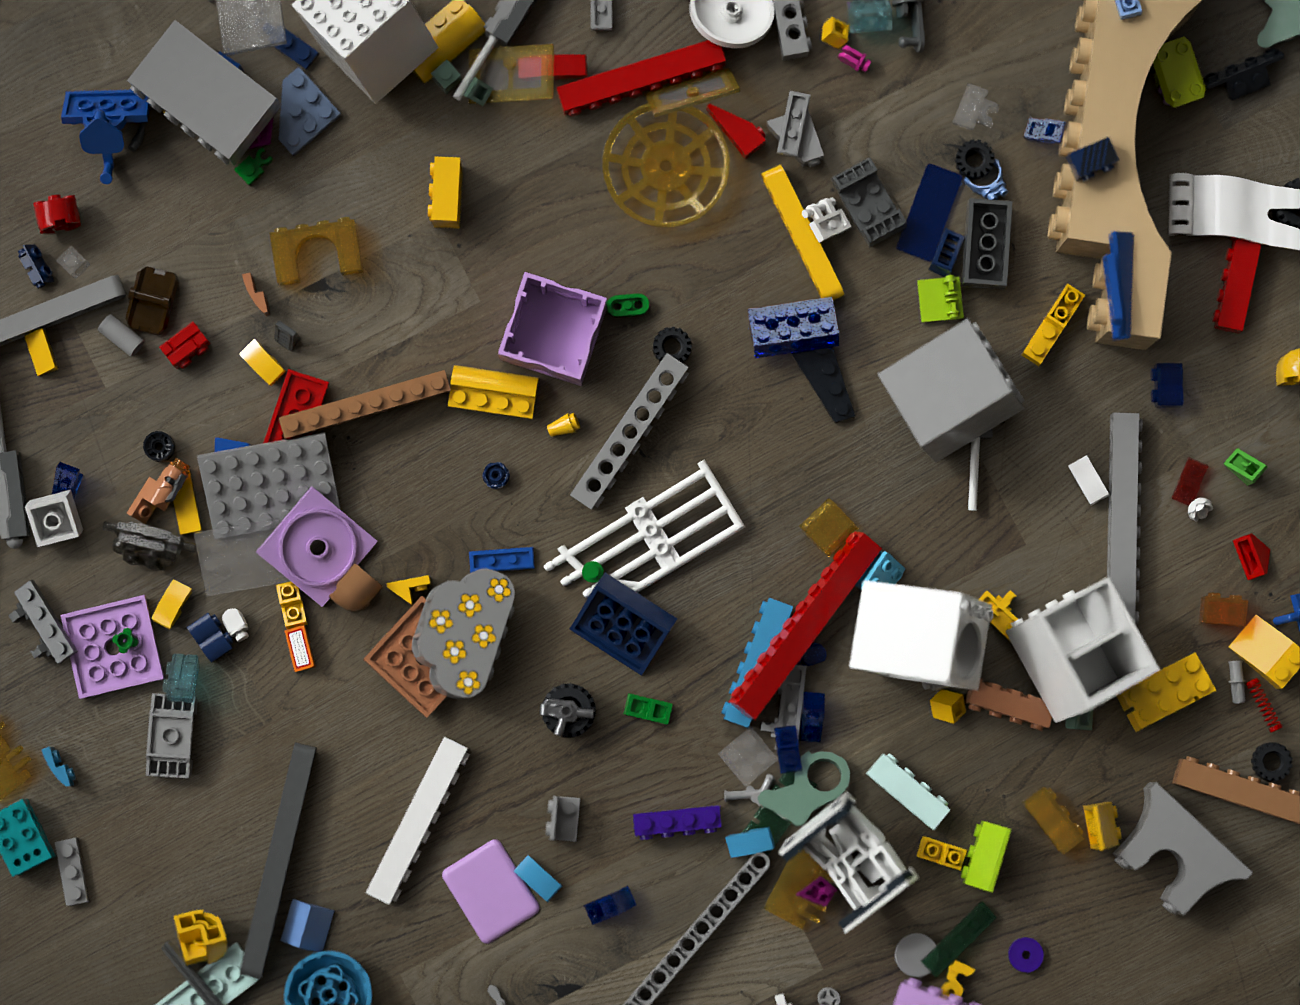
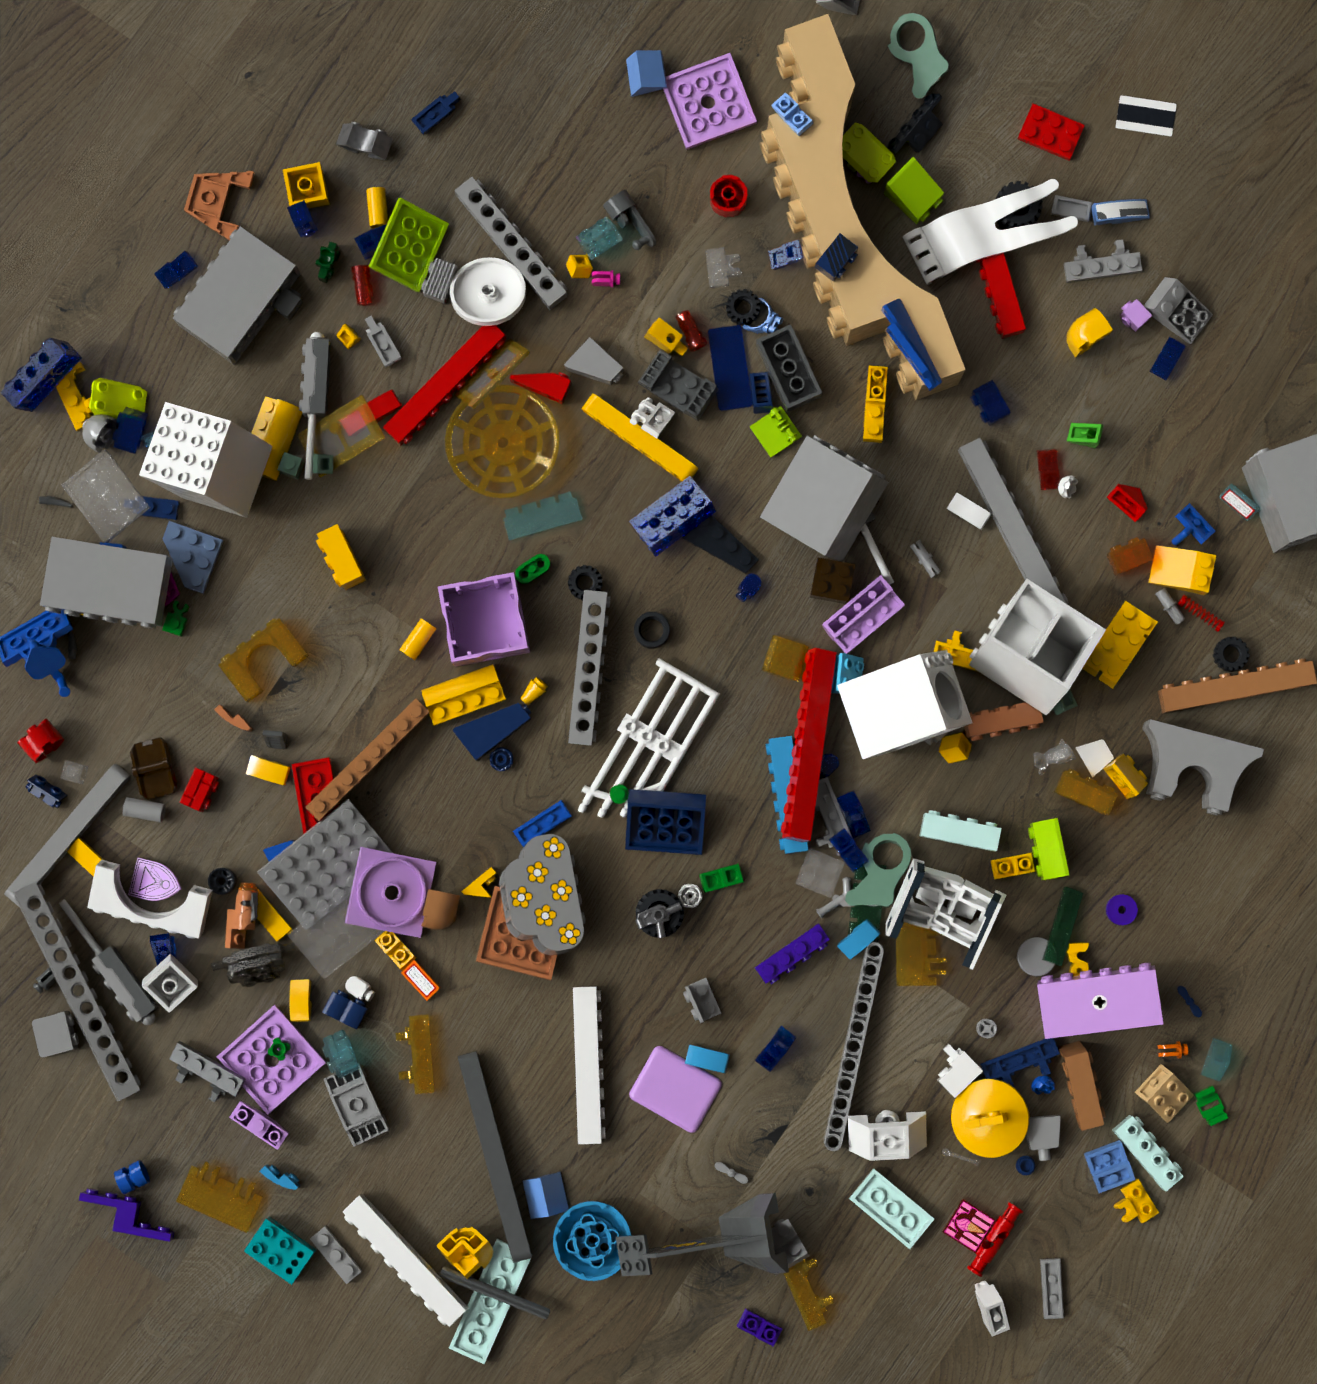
camera: 20 degrees left, 0 degrees up
(41, 403) = (110, 898): none -> white arch
(66, 703) = (259, 1124): none -> lavender slope
(92, 410) = (153, 881): none -> lavender shield
(135, 913) = (405, 1260): none -> white brick
(267, 705) = (422, 1070): none -> clear yellow hinge
(478, 313) = (417, 639): none -> yellow pin
(502, 441) = (490, 730): none -> dark blue slope
(608, 702) = (696, 894): none -> white plate
(669, 262) = (544, 518): none -> clear light blue windscreen
(712, 444) = (652, 644): none -> black tyre
(793, 124) = (585, 355): light grey tile -> none
(818, 892) = (933, 949): magenta piece -> none
(830, 437) = (748, 587): none -> clear blue arm
(876, 141) = (658, 335): none -> yellow torso
(910, 154) = (690, 330): none -> clear red axle
(916, 476) = (832, 580): none -> dark brown brick
(928, 525) = (863, 614): none -> lavender brick
(1013, 32) = (728, 185): none -> red brick
(1020, 504) = (925, 558): none -> light grey pin
(1044, 767) = (1057, 755): none -> clear animal
(1082, 789) = (1095, 756): none -> white sticker
(1206, 136) = (914, 191): none -> lime slope

